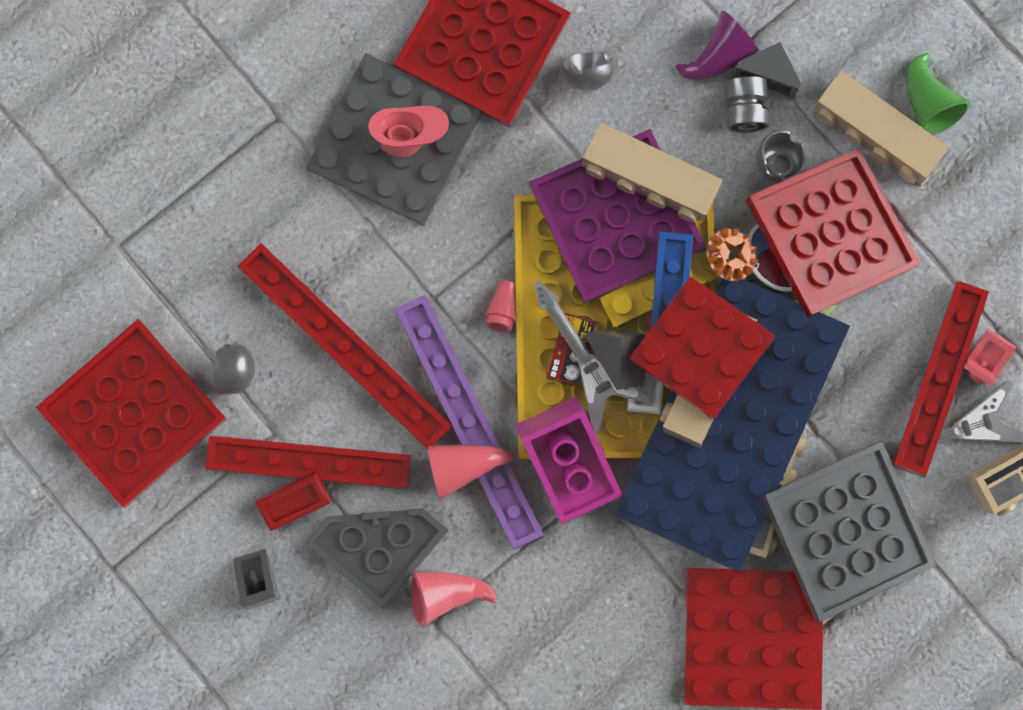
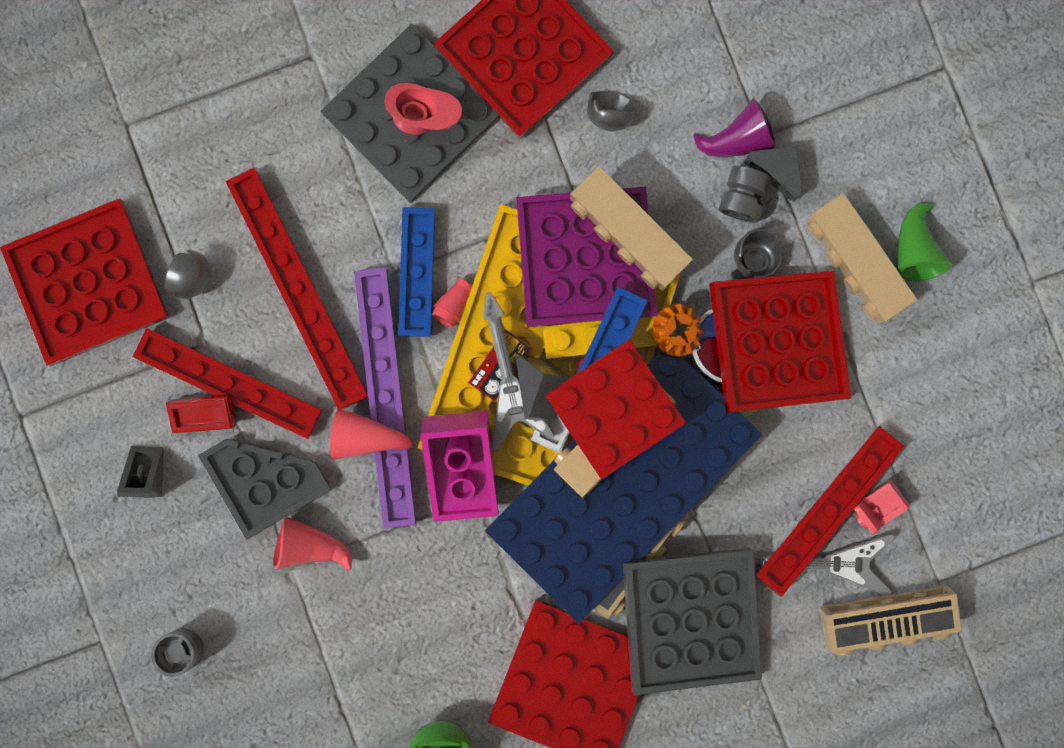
camera: 25 degrees right, 5 degrees up
(456, 289) = (416, 272): none -> blue plate

